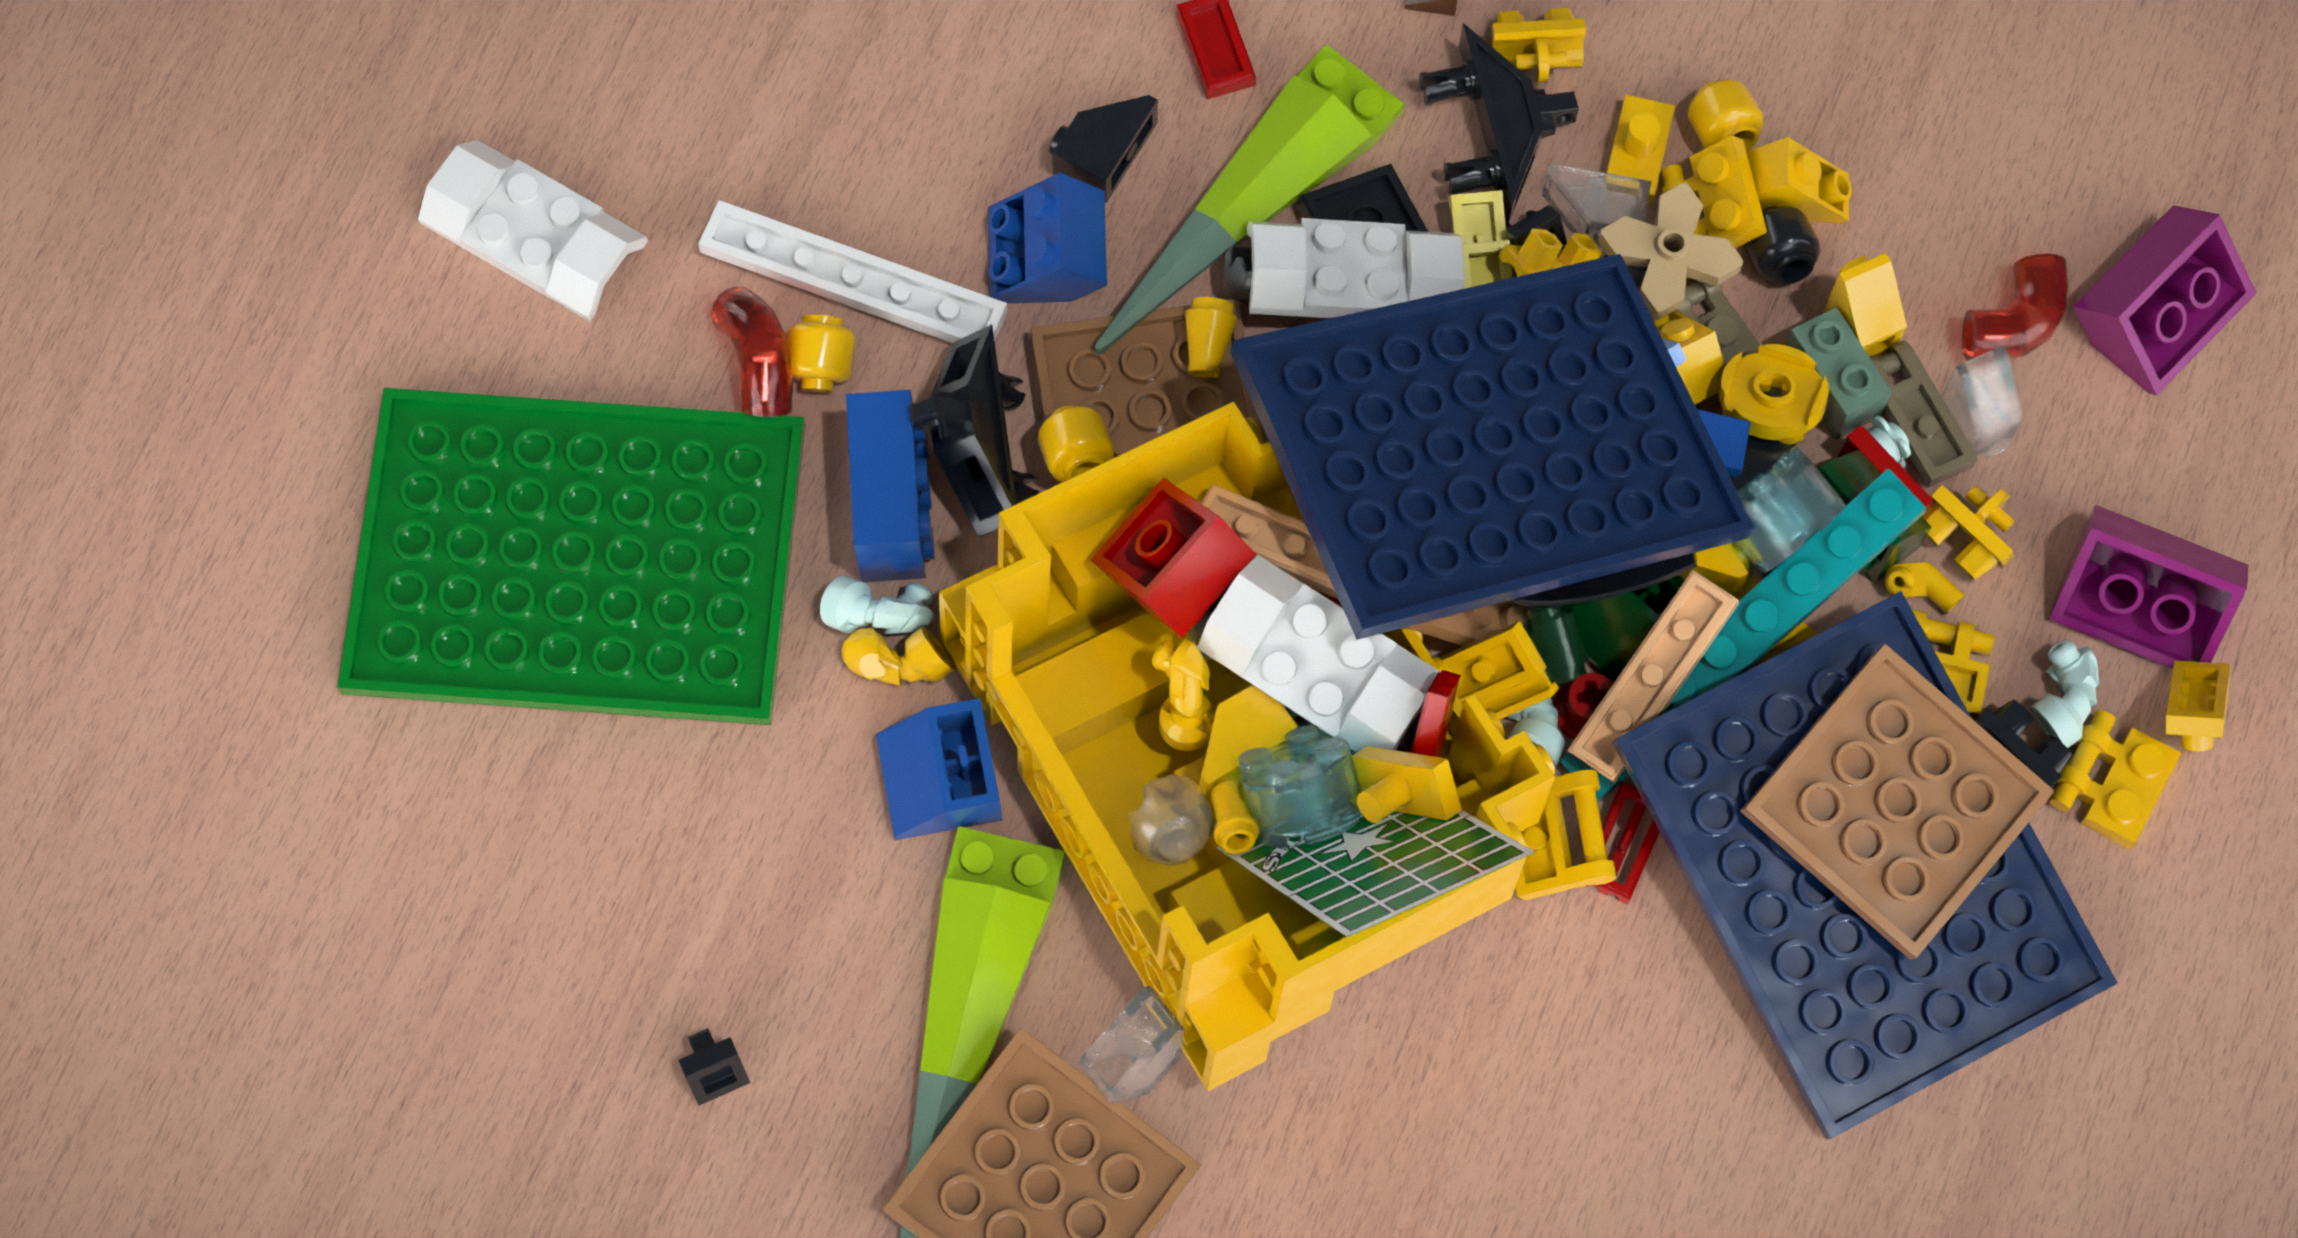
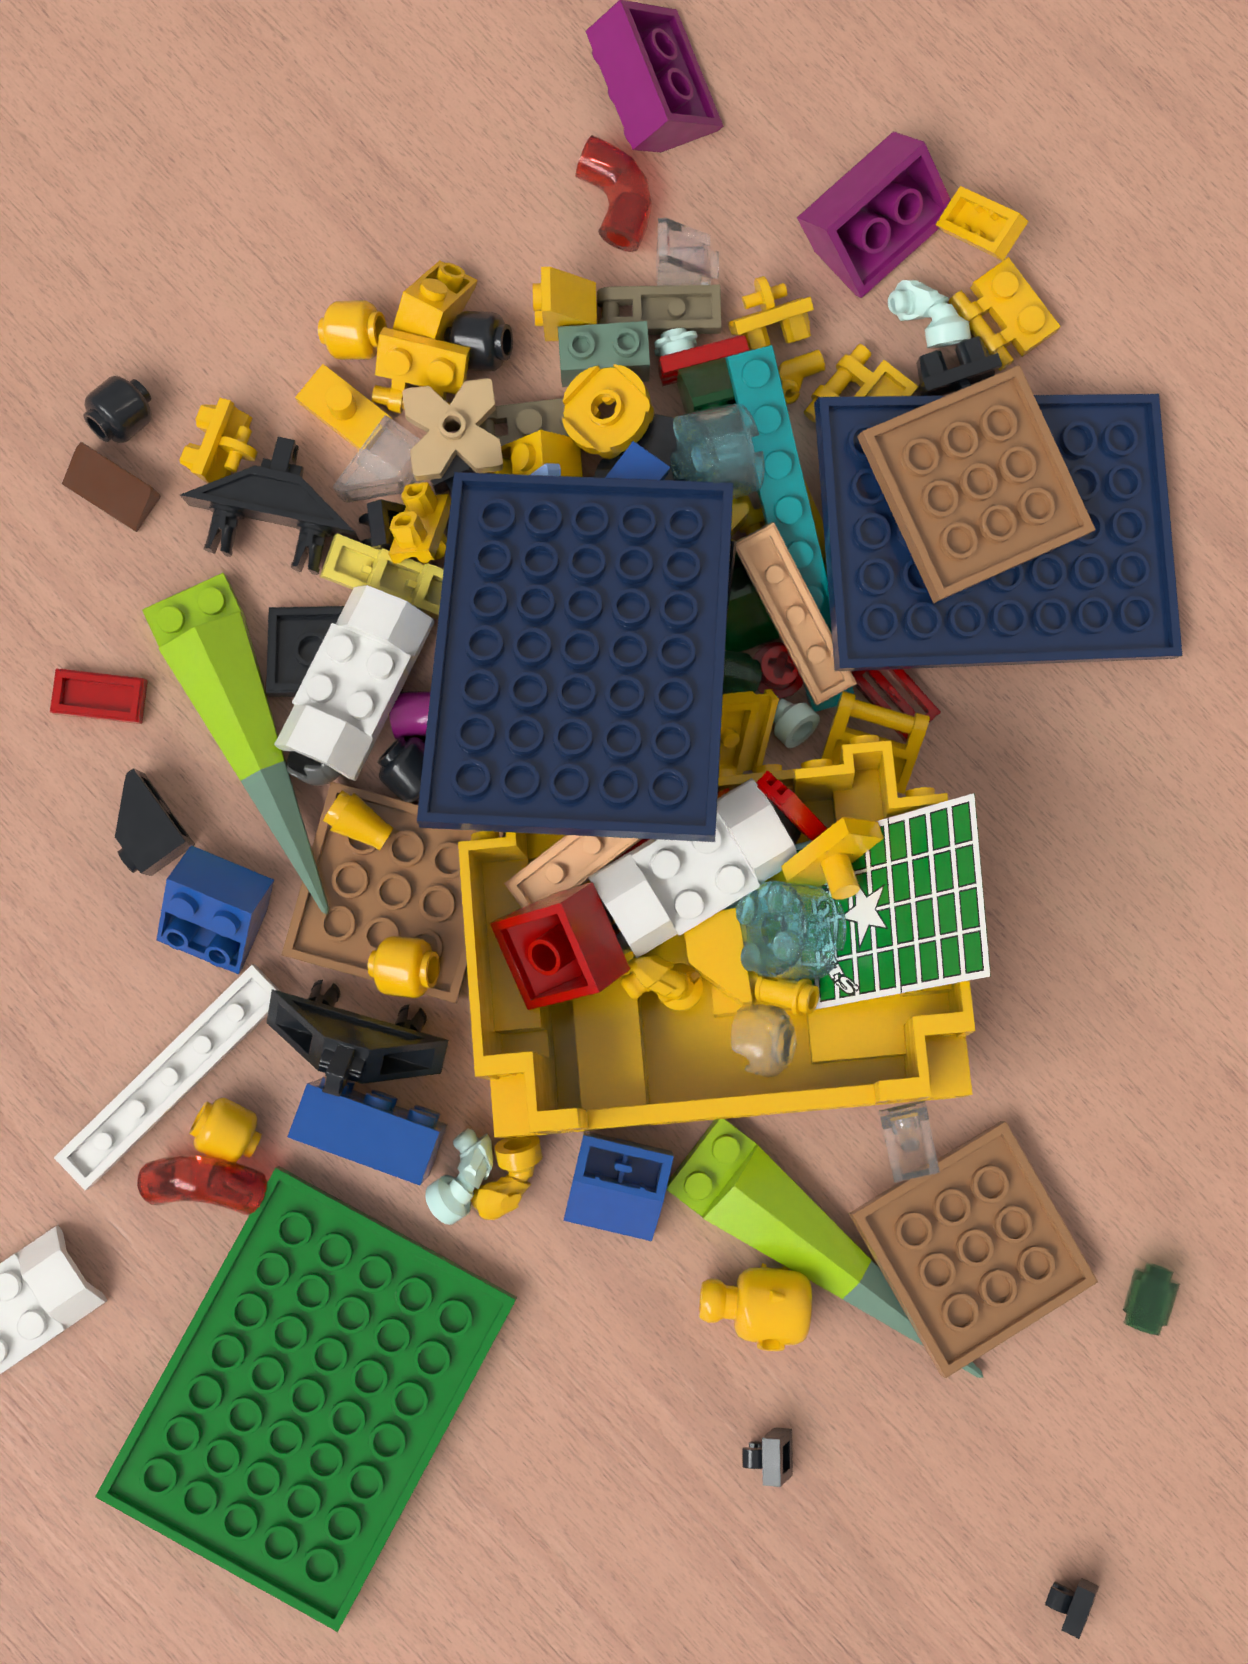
camera: 70 degrees left, 15 degrees up
(876, 981) = (765, 1304): none -> yellow piece

